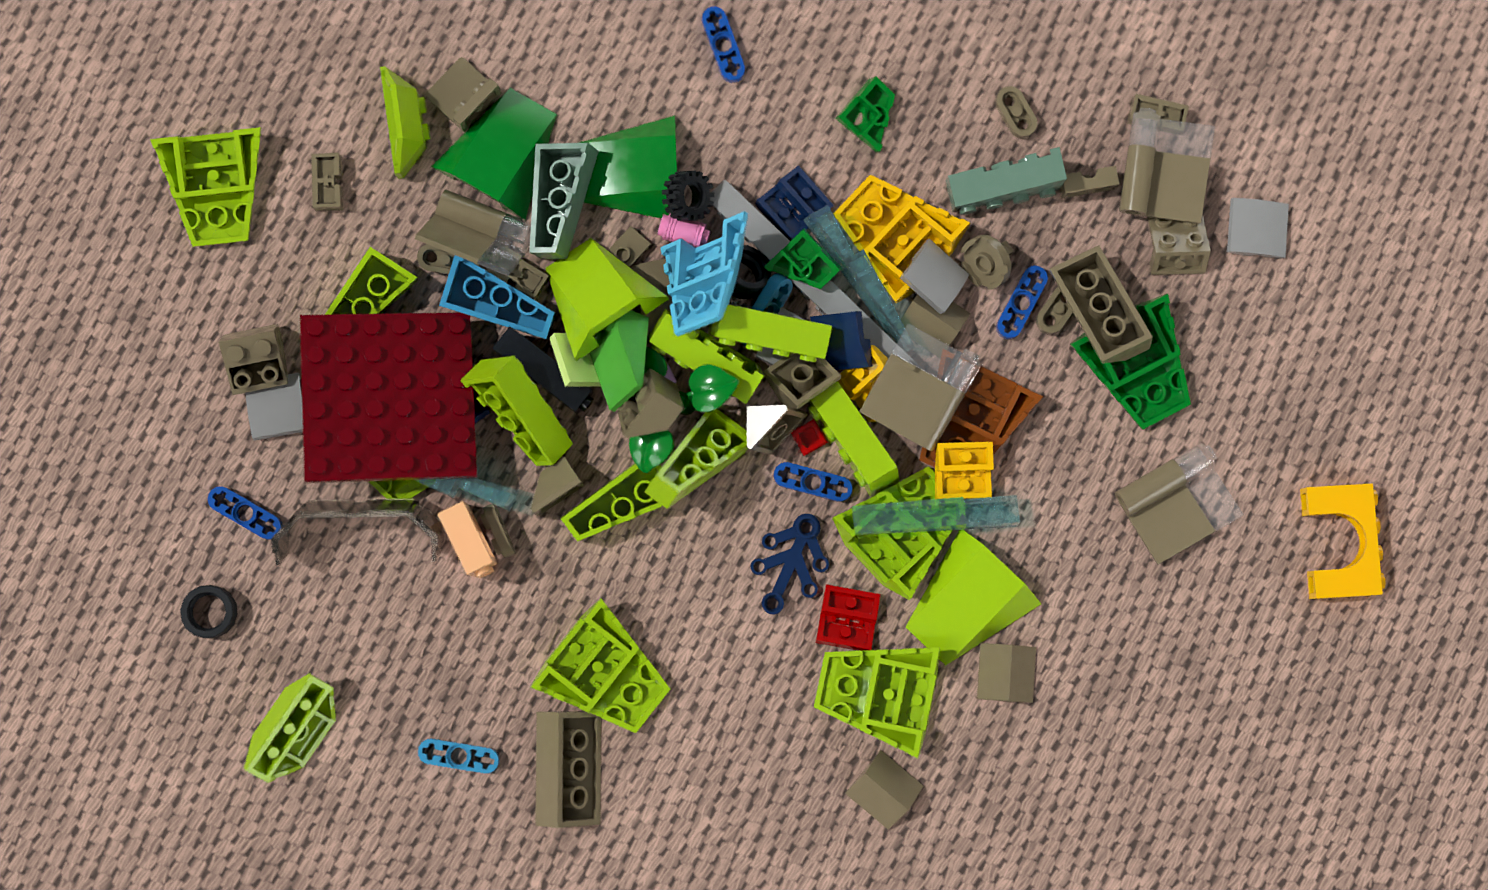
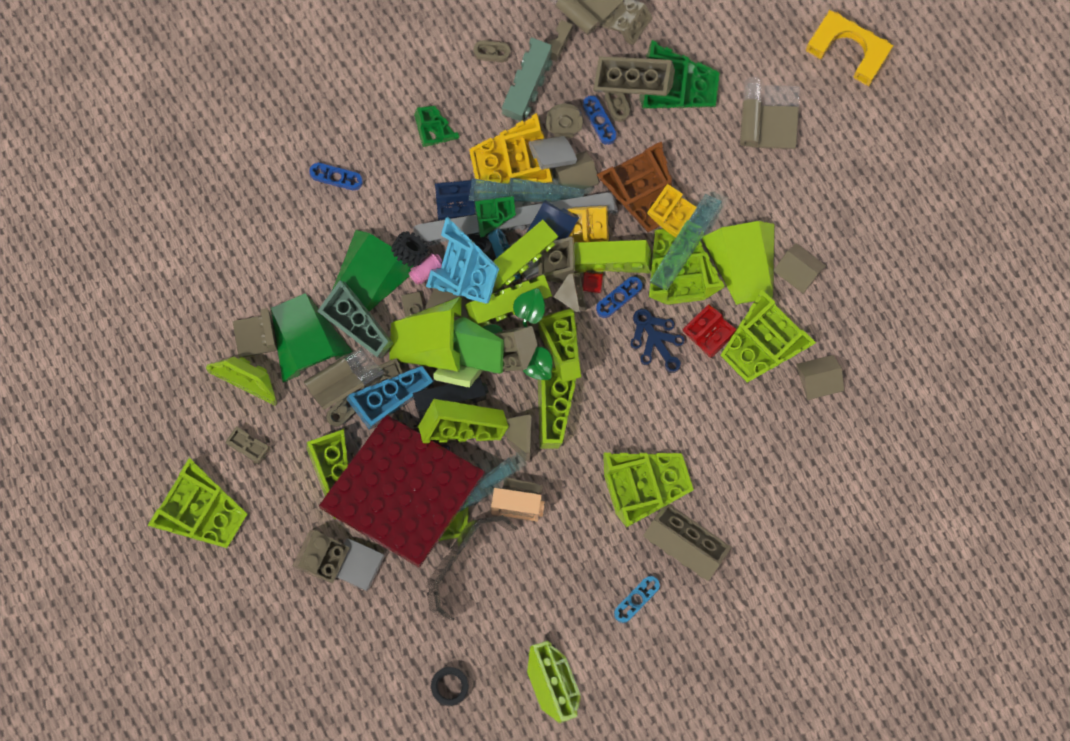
camera: 50 degrees left, 10 degrees down
(231, 496) = (422, 625): blue beam -> none
(921, 387) = (610, 198): dark tan door -> none

